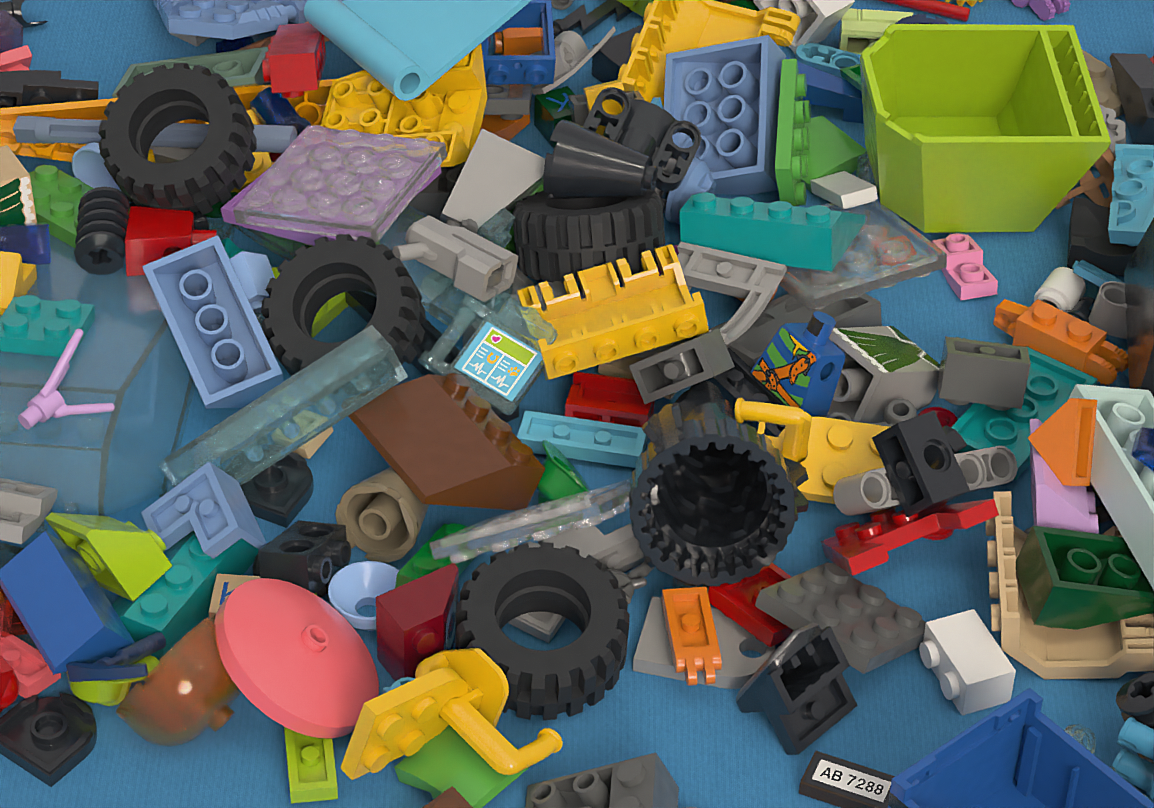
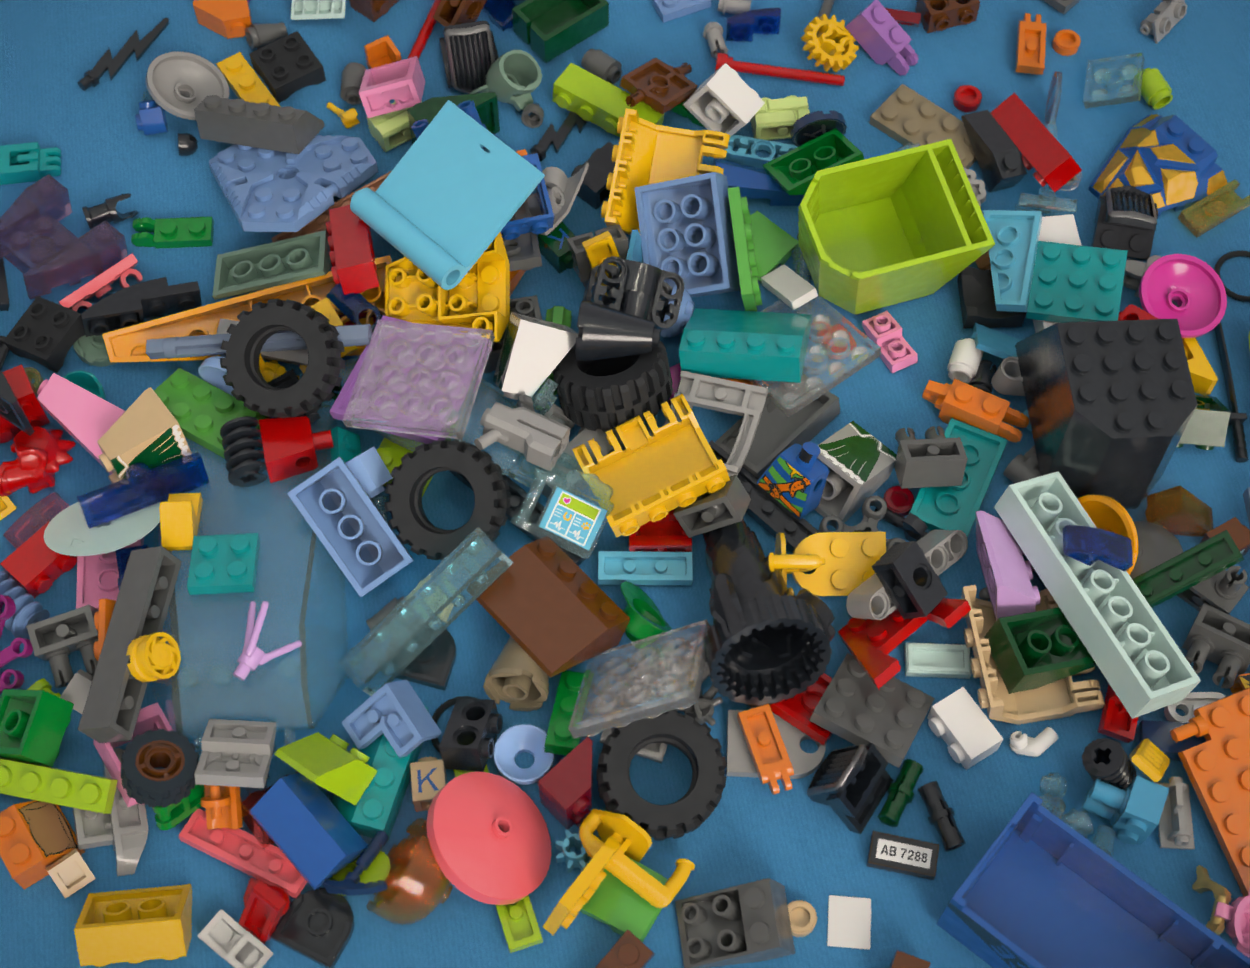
camera: 10 degrees left, 20 degrees up
(84, 44) = (173, 232): none -> green hinge
(863, 717) = (900, 793): none -> dark green pin
(910, 740) = (941, 816): none -> black pin
(947, 592) = (937, 660): none -> light aqua tile
(1062, 700) = (1032, 746): none -> white arm
(1068, 441) = (1011, 540): orange slope -> none
(1125, 45) = (967, 98): none -> red tile

